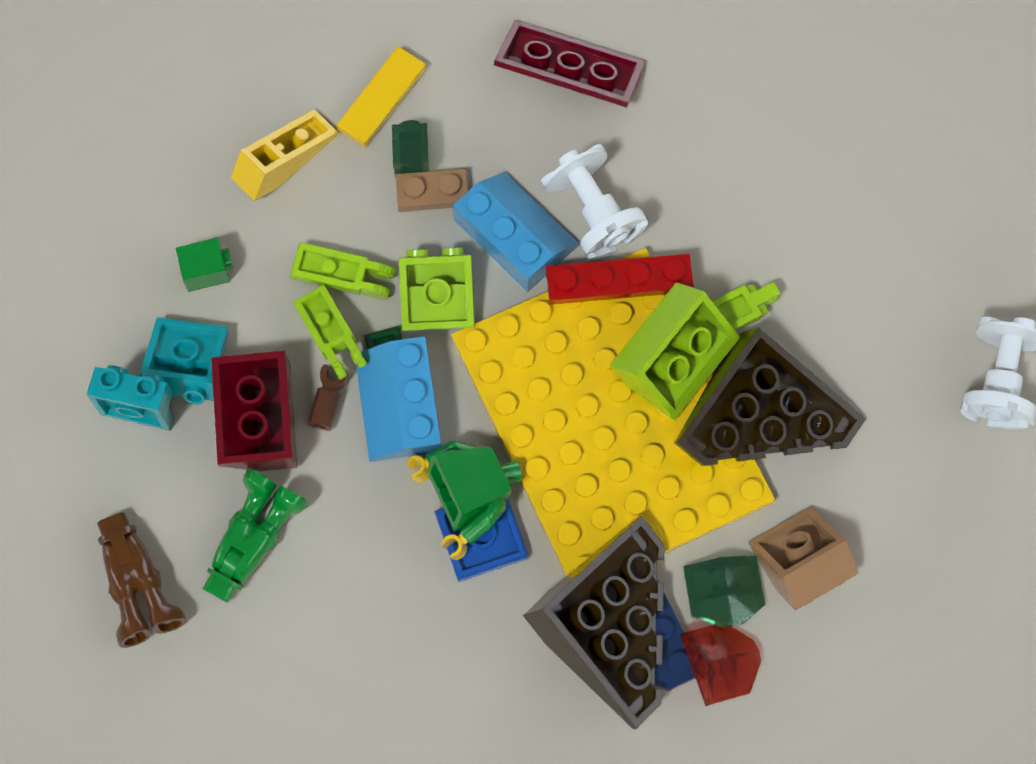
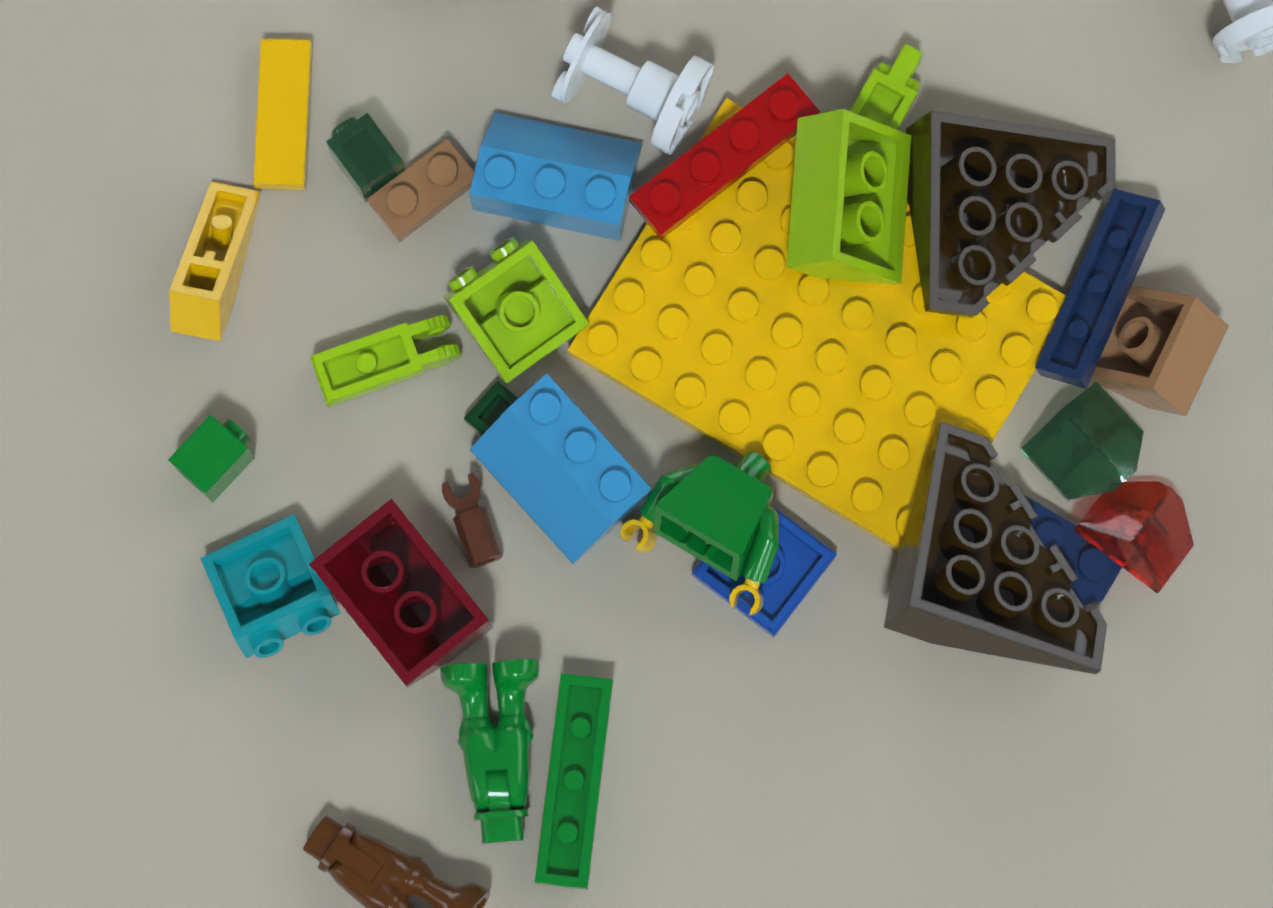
camera: 30 degrees left, 5 degrees up
(131, 397) = (245, 673): teal plate -> none
(280, 588) = (574, 781): none -> green plate
(328, 328) = (418, 437): lime hinge -> none
(795, 501) = (1100, 288): none -> dark blue plate

